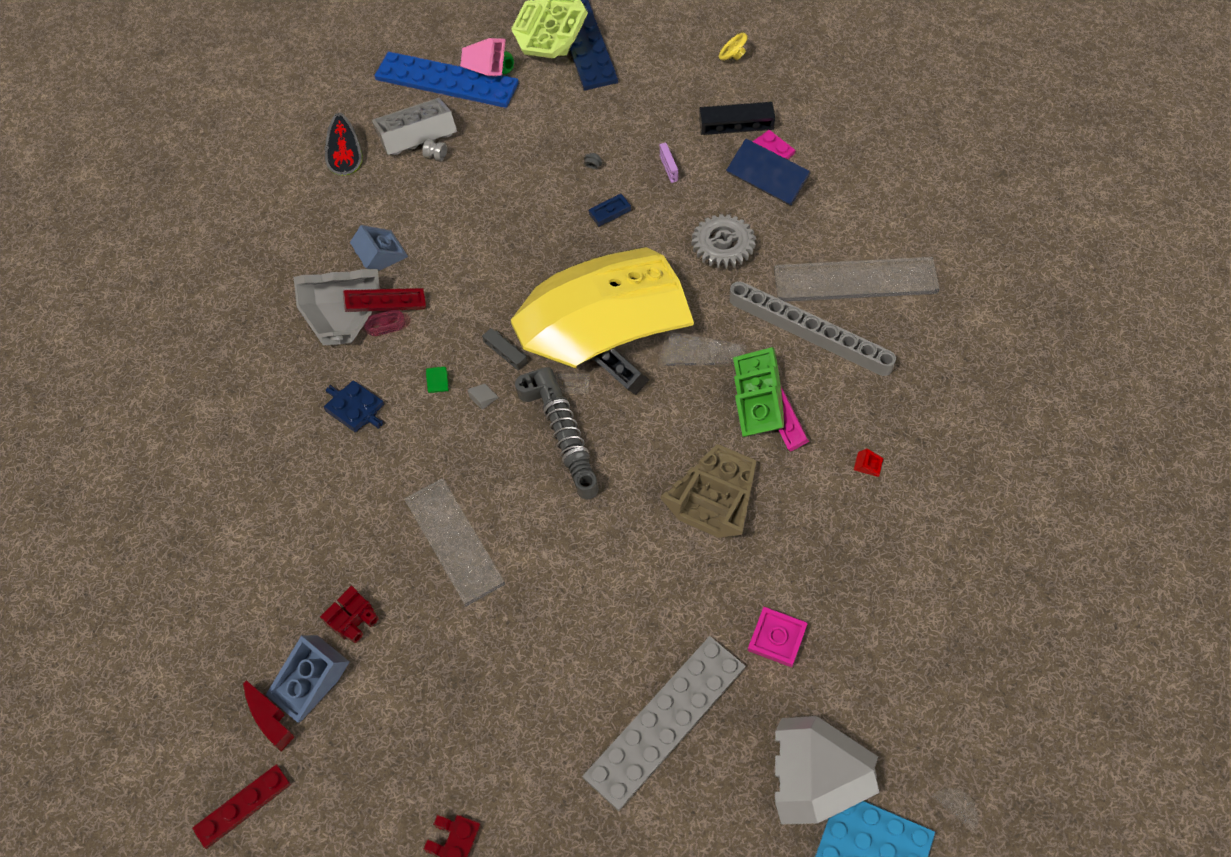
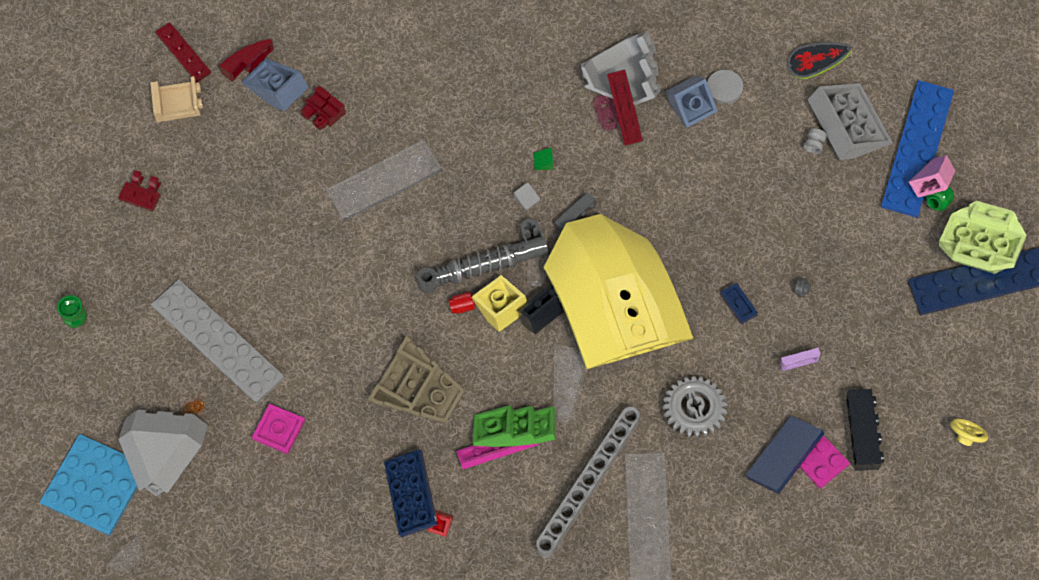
camera: 90 degrees right, 5 degrees up
(316, 805) = (176, 100): none -> tan panel
(354, 406) = (519, 95): dark blue plate -> none
(362, 216) = (725, 86): none -> light grey tile
(612, 450) = (462, 303): none -> red brick
(614, 409) = (500, 302): none -> light yellow slope
(758, 744) = (193, 408): none -> clear orange arm
(841, 490) = (411, 493): none -> dark blue tile

